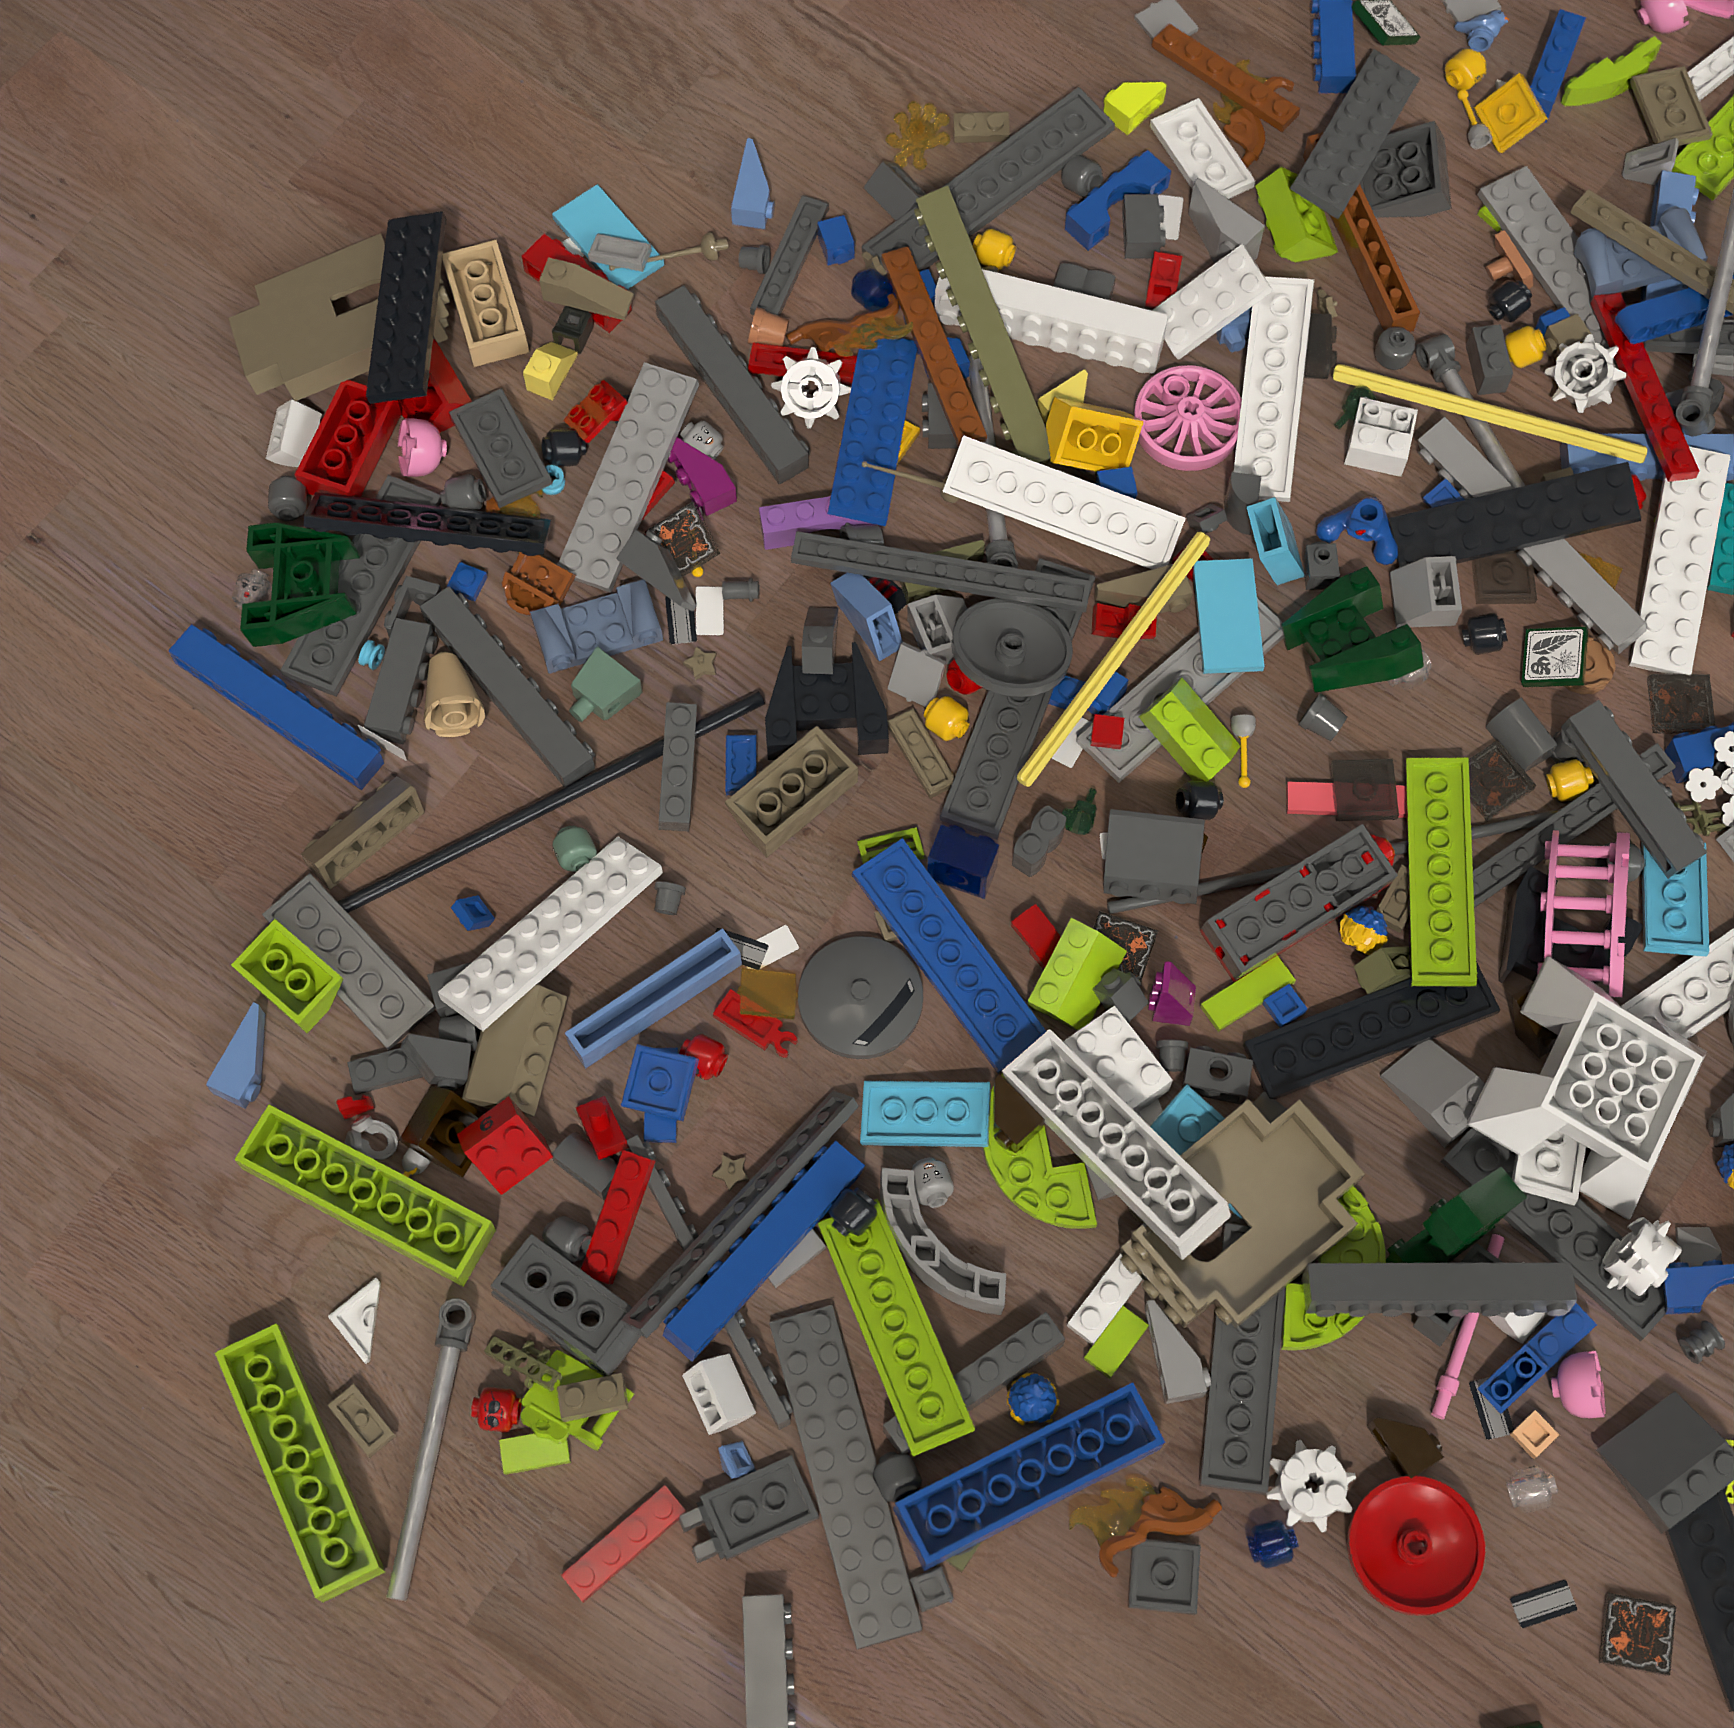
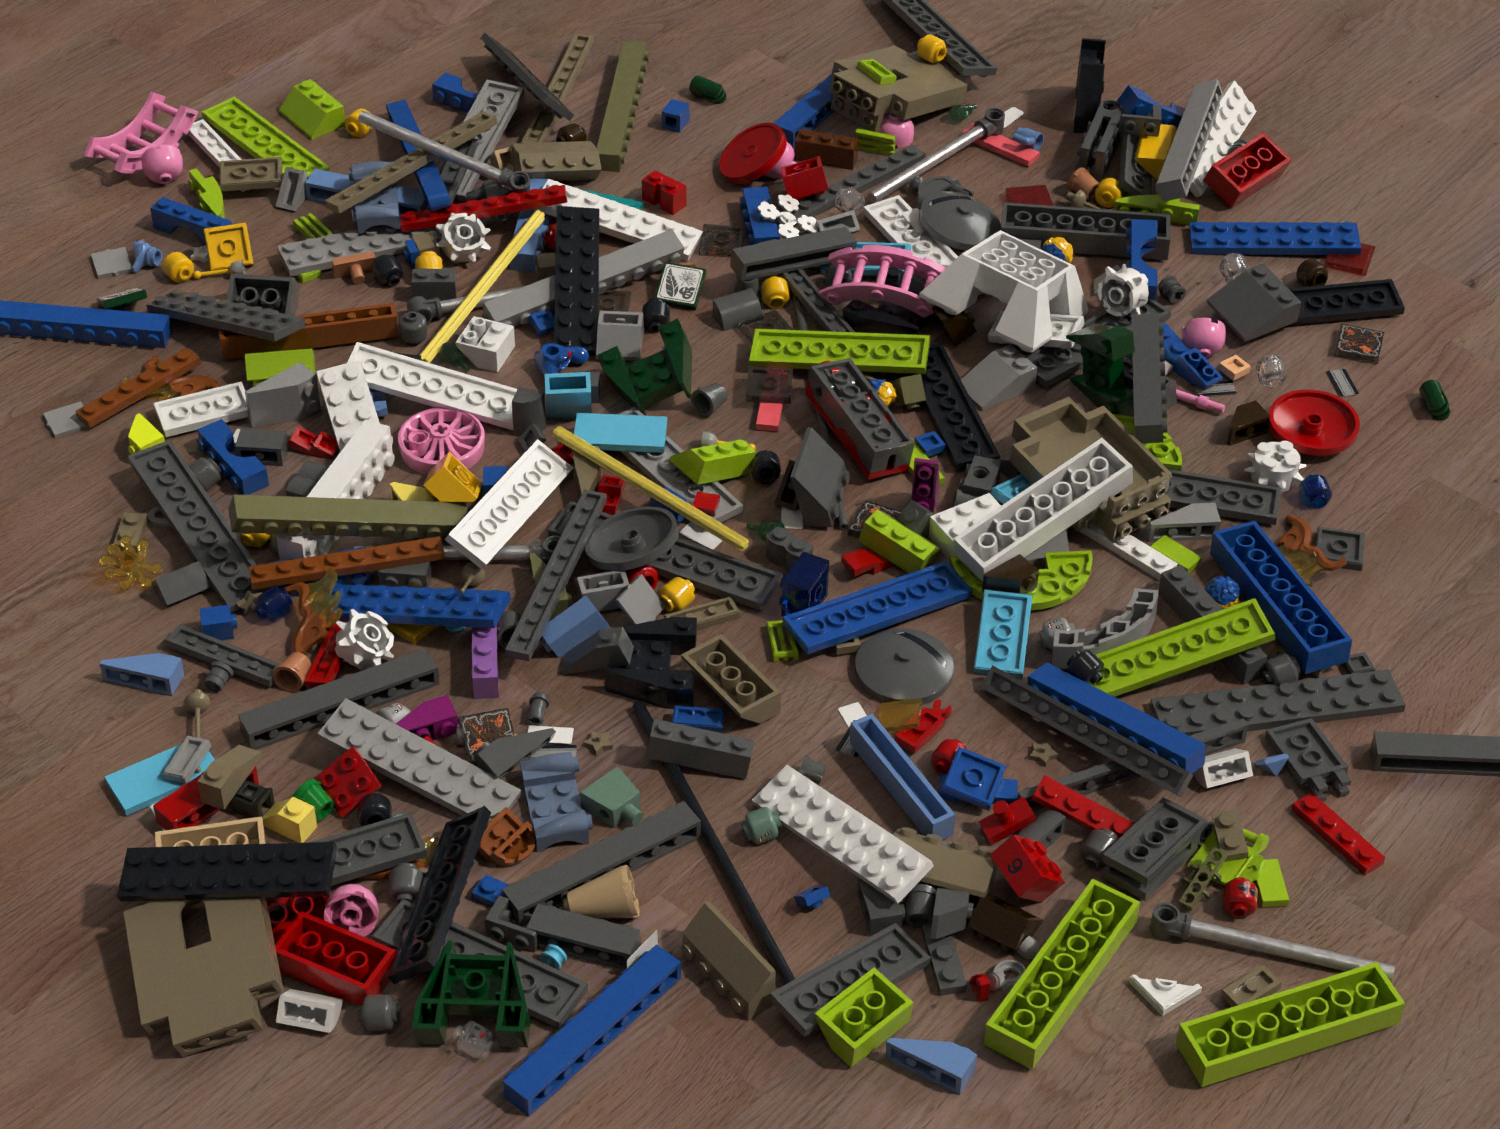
camera: 85 degrees left, 25 degrees down
(573, 384) = (313, 794): none -> green piece
(1598, 189) = (313, 224): none -> lime tile

